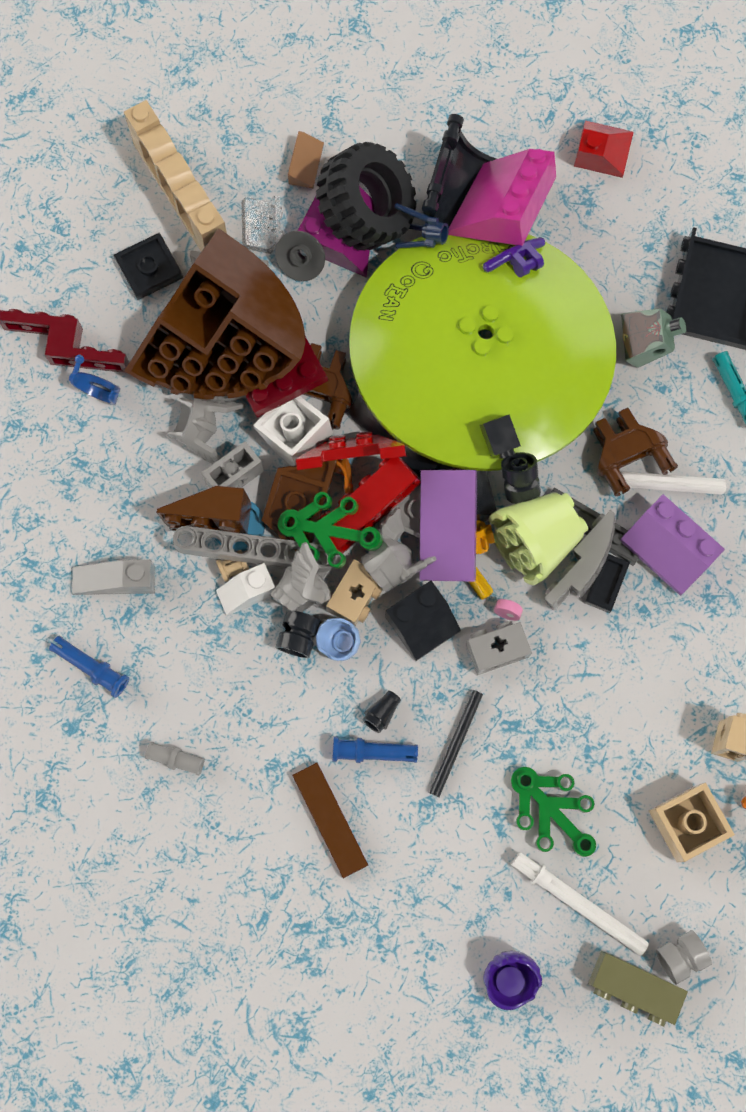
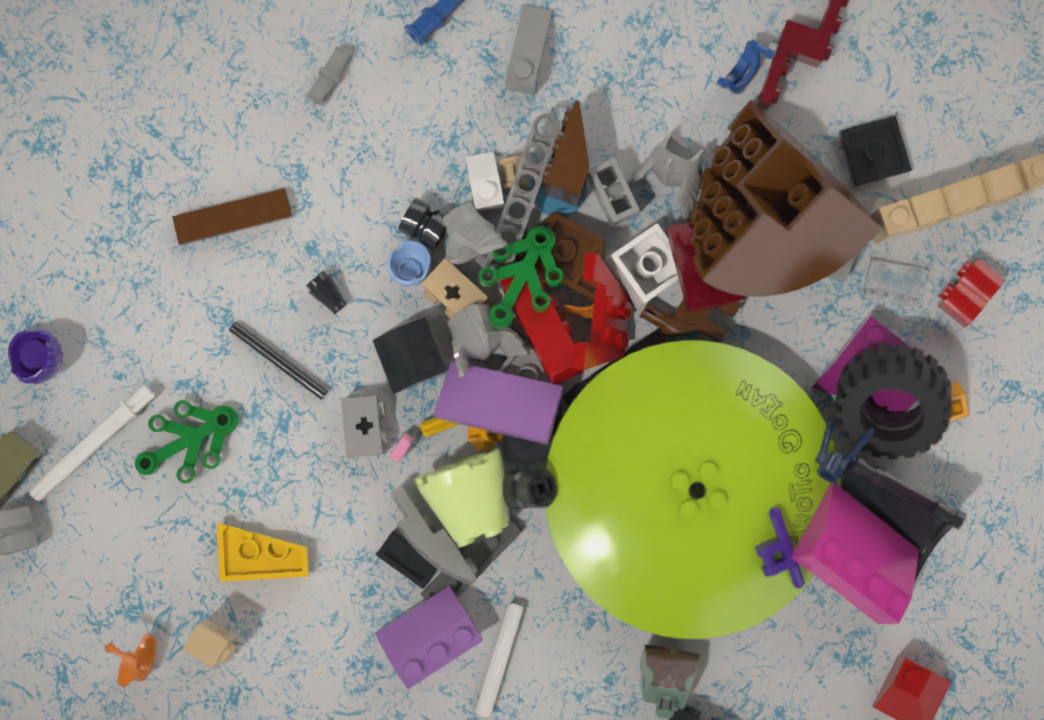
camera: 105 degrees right, 10 degrees up
(256, 165) = (970, 293): none -> red brick
(293, 262) = (846, 316): dark grey dish -> none
(305, 160) = (966, 350): medium nougat slope -> none
(360, 750) = (292, 262): blue pin -> none
(500, 436) = (574, 475): black brick -> none
(627, 447) = (546, 619): reddish brown connector -> none
(642, 717) = (258, 556): none -> yellow wing
(691, 822) = (139, 574): tan brick -> none

